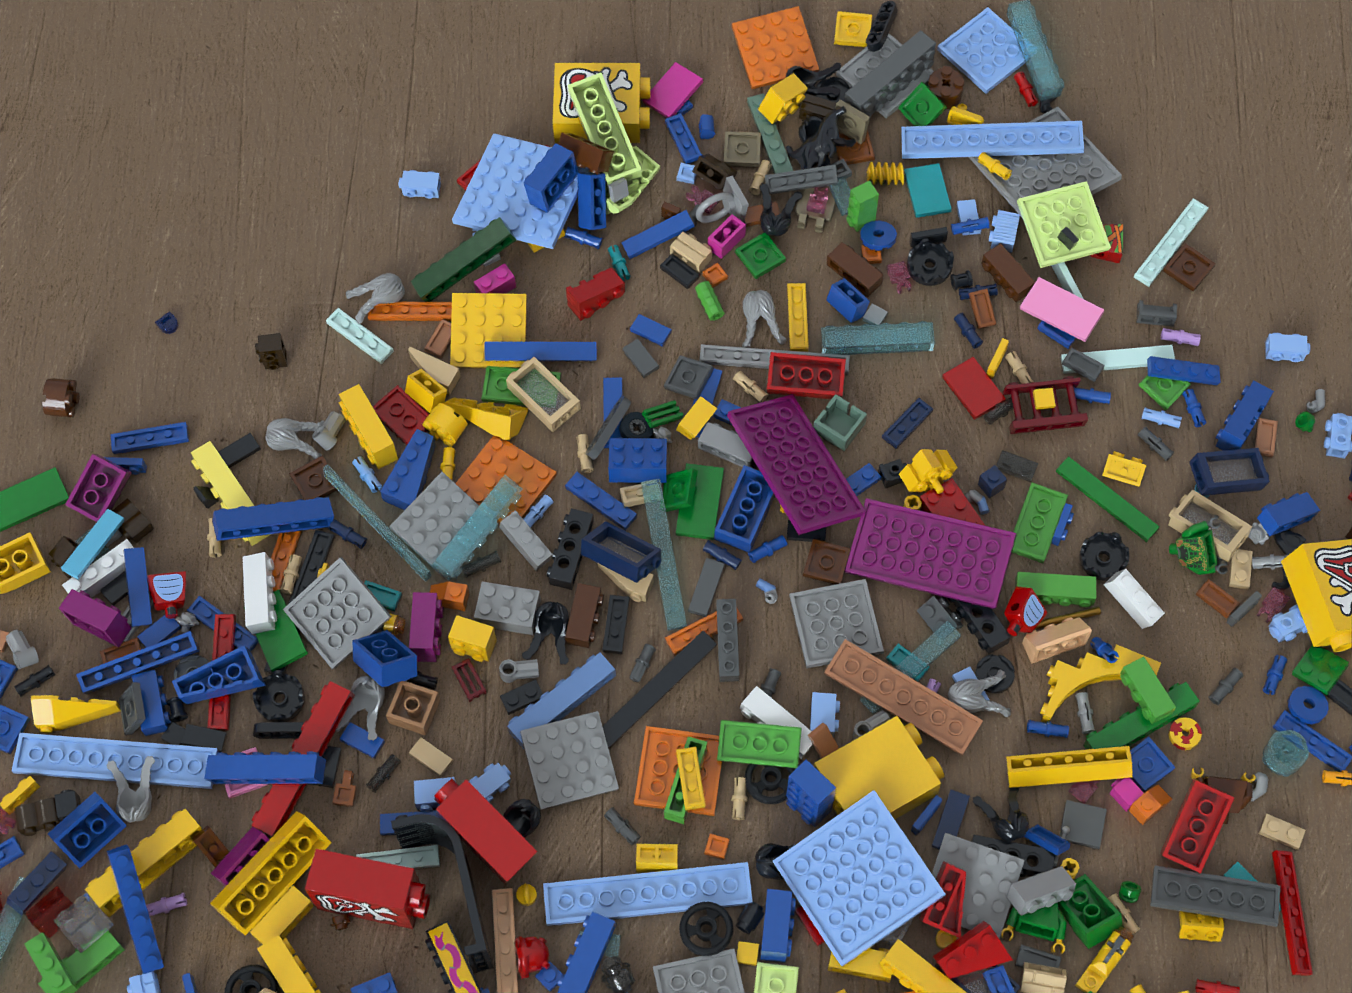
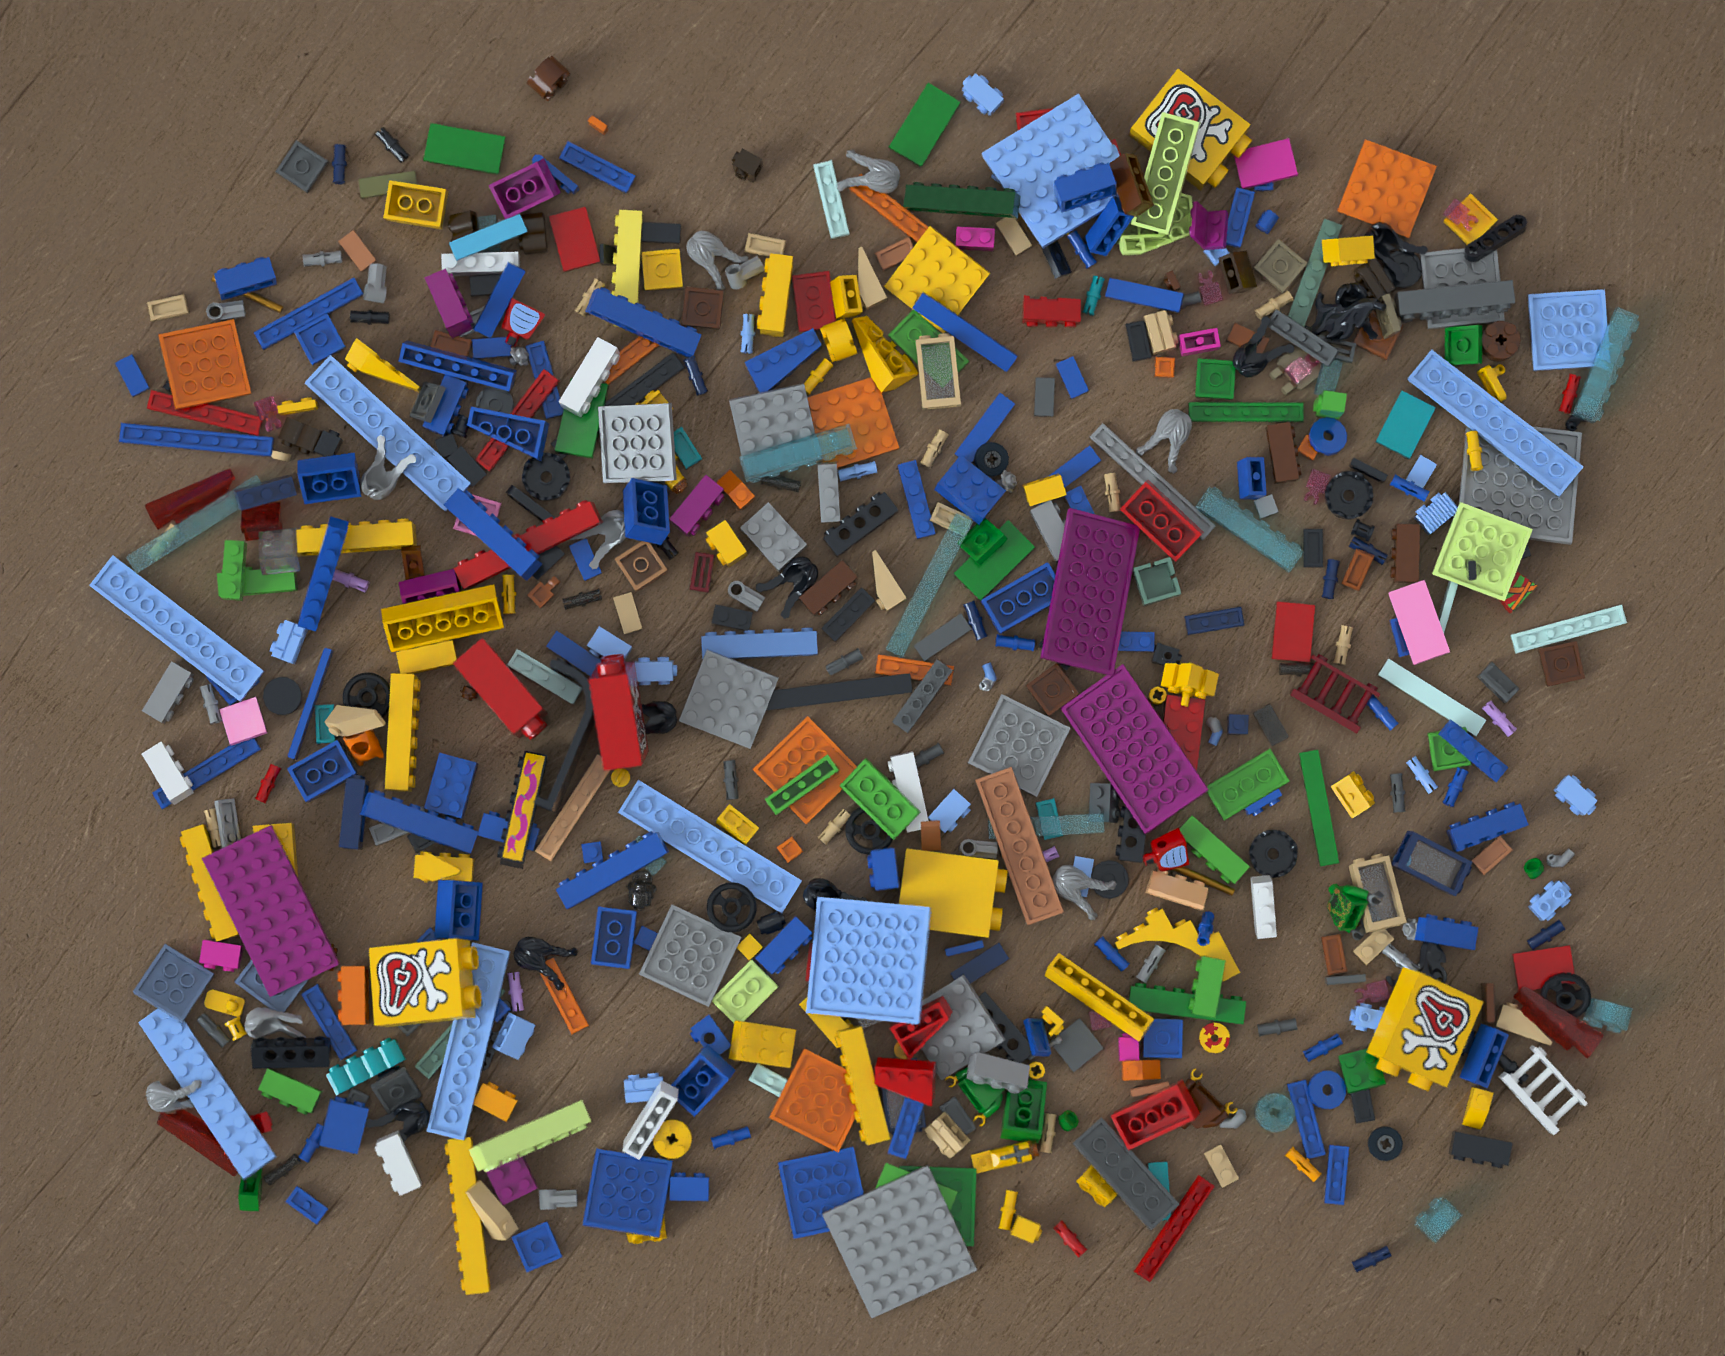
camera: 35 degrees right, 20 degrees up
(31, 845) = (281, 456): none -> tan tile
(127, 407) = (598, 125): none -> orange tile
(167, 323) = (683, 67): clear blue tile -> none
(170, 503) = (574, 239): none -> red tile
(260, 475) = (662, 269): none -> yellow plate
(291, 574) = (626, 377): tan pin -> none
(316, 815) = (508, 594): none -> yellow pin
(327, 404) = (764, 245): none -> tan tile
(376, 523) = (723, 385): clear light blue tile -> none
(392, 237) = (924, 125): none -> green tile
(523, 264) = (1013, 235): none -> tan tile
(531, 955) = (589, 828): red helmet -> none
(564, 254) = (1056, 260): none -> black plate
(608, 427) = (967, 443): dark grey beam -> none
(618, 190) = (1136, 236): light grey tile -> none
(621, 552) = (894, 561): dark blue window -> none
(658, 412) = (1036, 465): green tile -> none
(669, 156) = (1208, 227): none -> magenta bracket
(688, 377) = (1069, 445): dark grey tile -> none
(690, 778) = (803, 789): yellow tile -> none
(709, 301) = (1140, 389): bright green axle -> none
(733, 202) = (1227, 314): light grey tile -> none
(797, 317) = (1202, 458): yellow tile -> none
(803, 262) = (1246, 411): none -> green tile
(840, 26) = (1458, 213): none -> clear pink plate
(885, 173) = (1381, 383): yellow piece -> none
(941, 324) = (1313, 548): none -> black tile
(999, 354) = (1332, 622): yellow tile -> none
(1017, 823) = (1016, 1008): black hair -> none
(1044, 398) = (1336, 689): yellow tile -> none
(1047, 813) = (1050, 1017): none -> yellow bracket
(1083, 364) = (1397, 682): dark grey tile -> none
(1170, 814) = (1148, 1089): none -> nougat tile

